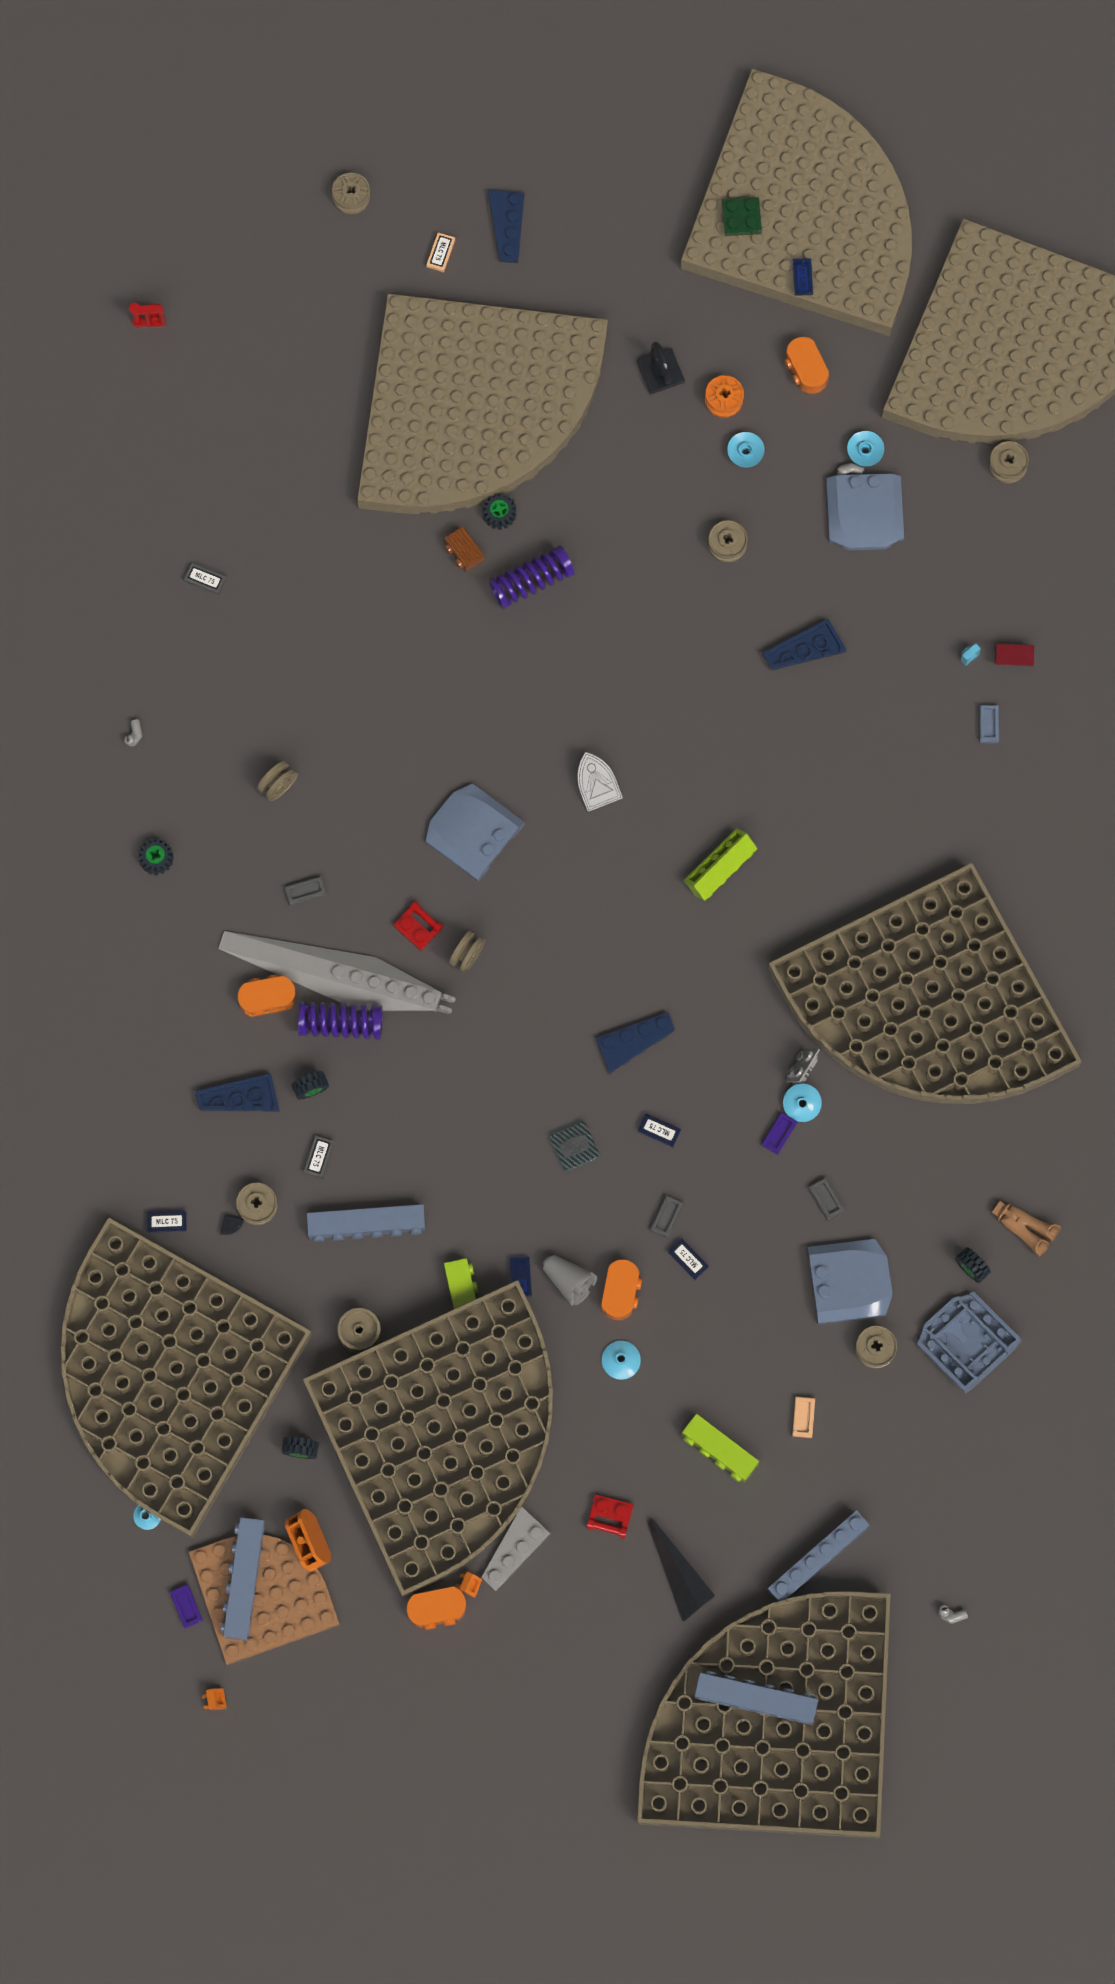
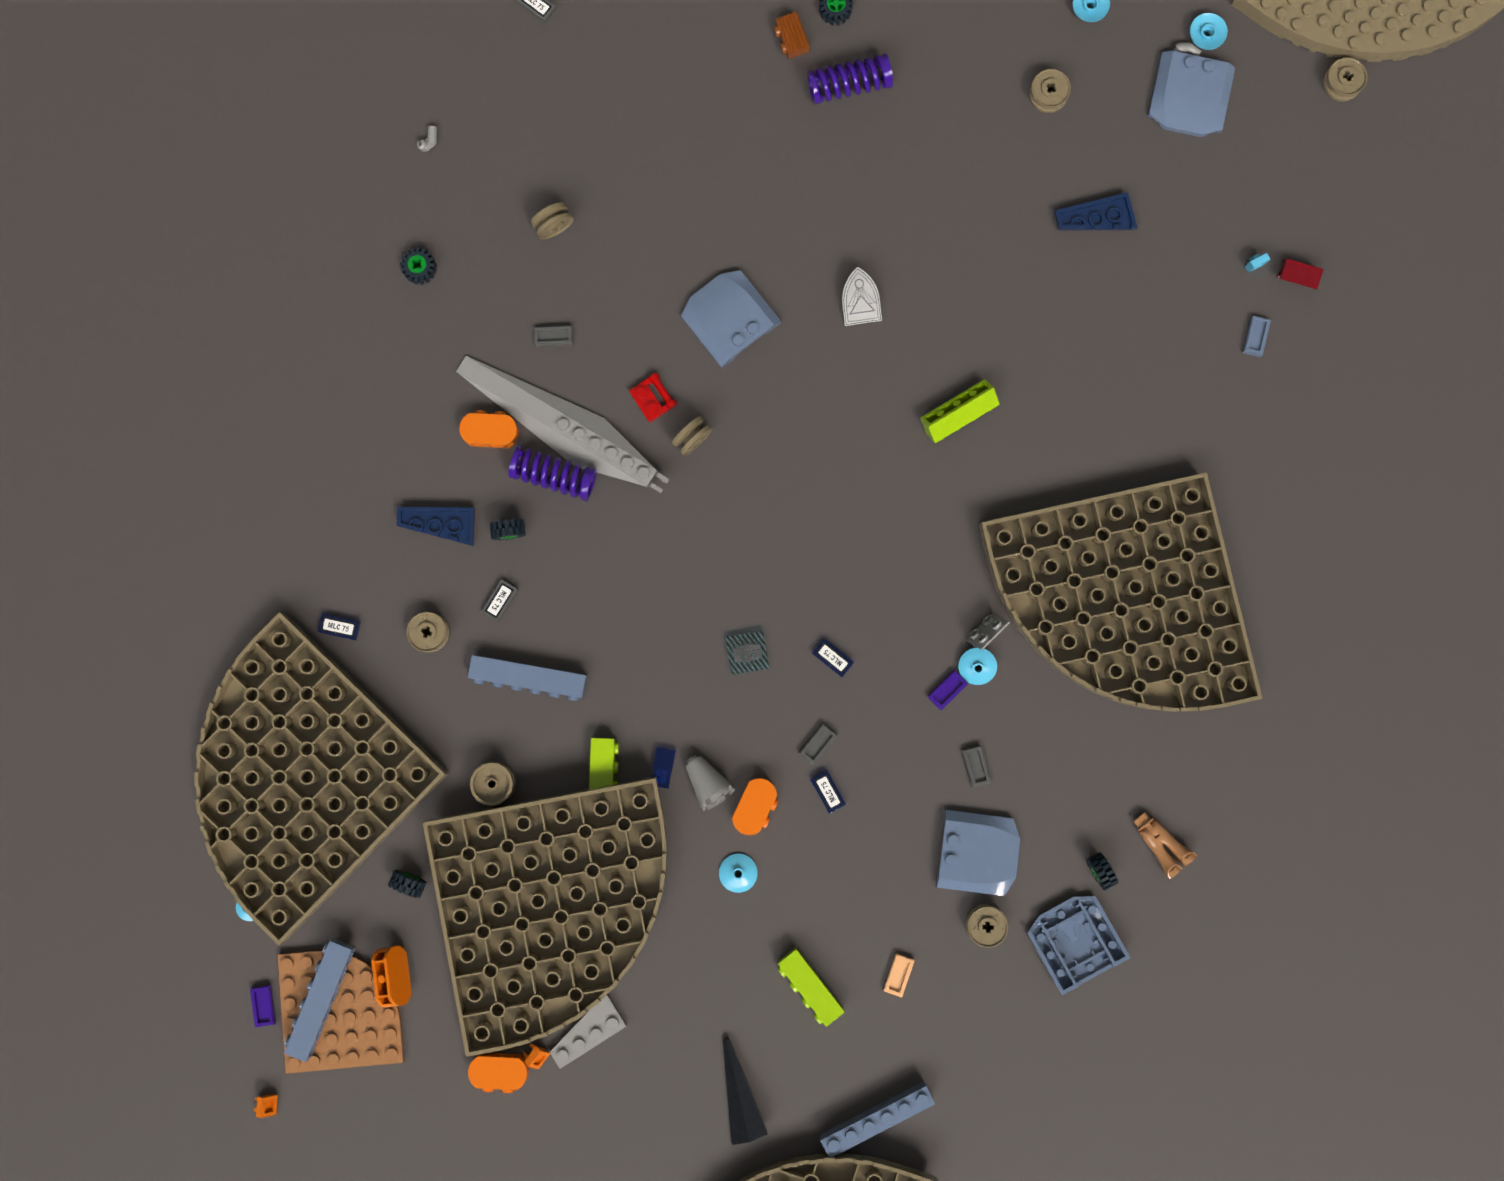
camera: 15 degrees right, 10 degrees up
(231, 1225) = (399, 645): black tile -> none
(611, 1510) = (691, 1018): red plate -> none
(633, 1040) = (827, 563): dark blue wing -> none

